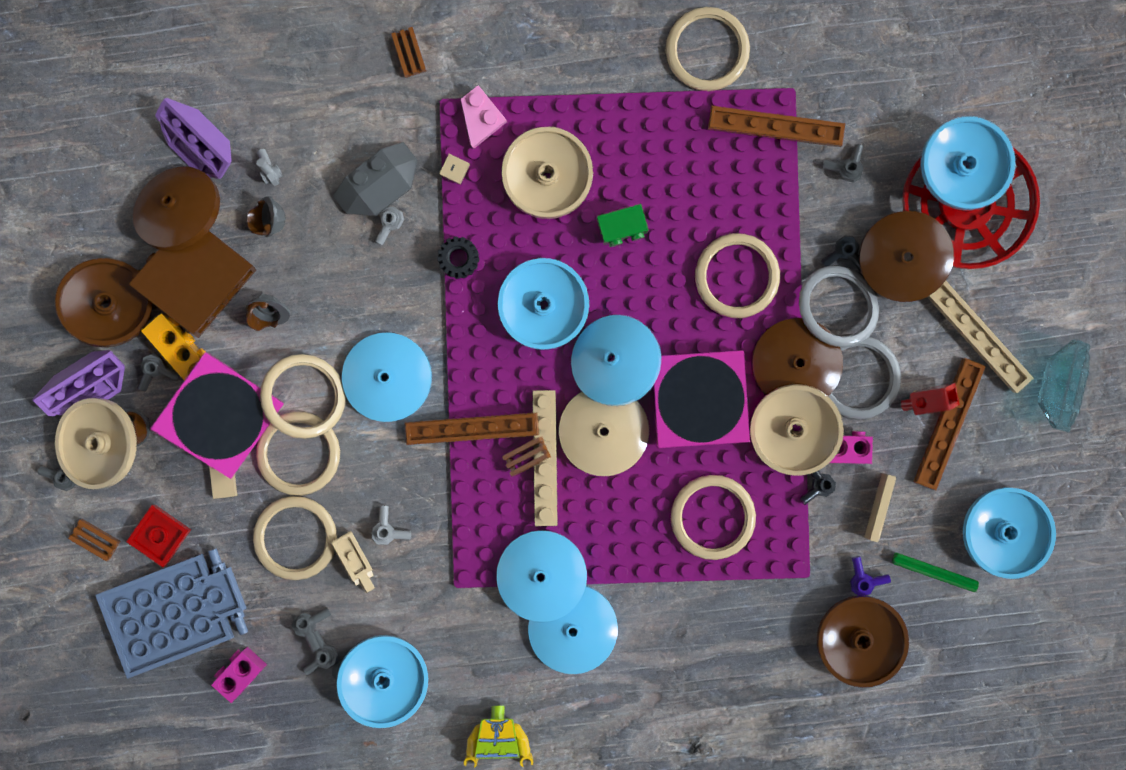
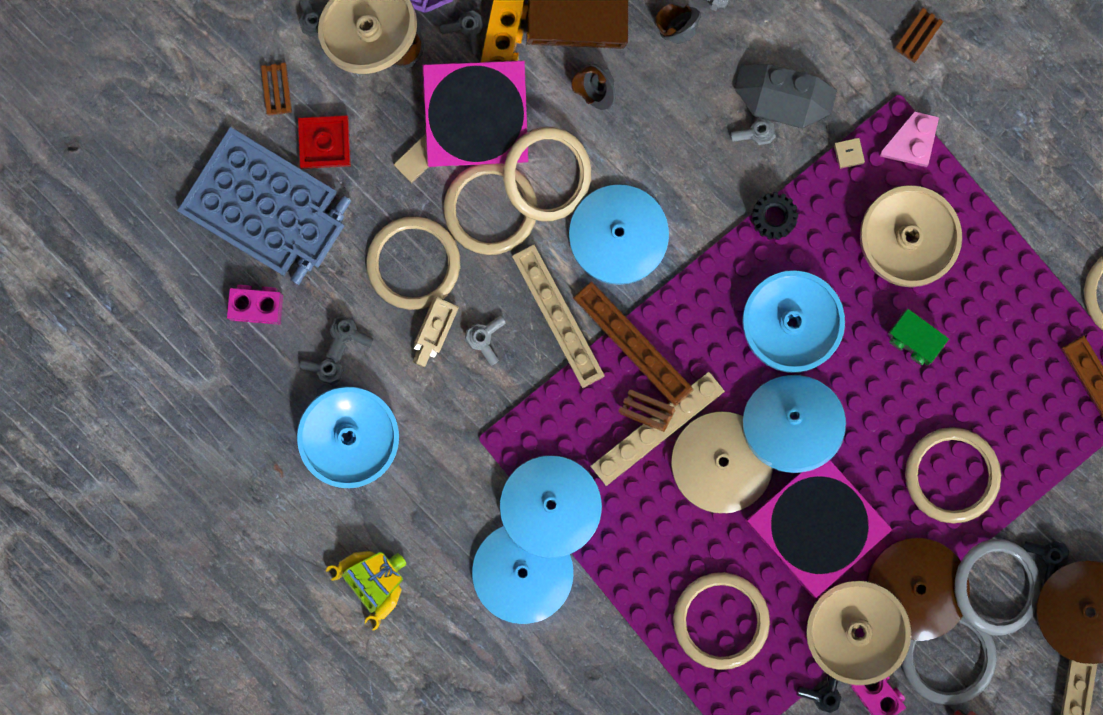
camera: 55 degrees right, 5 degrees down
(411, 466) = (558, 316): none -> tan plate

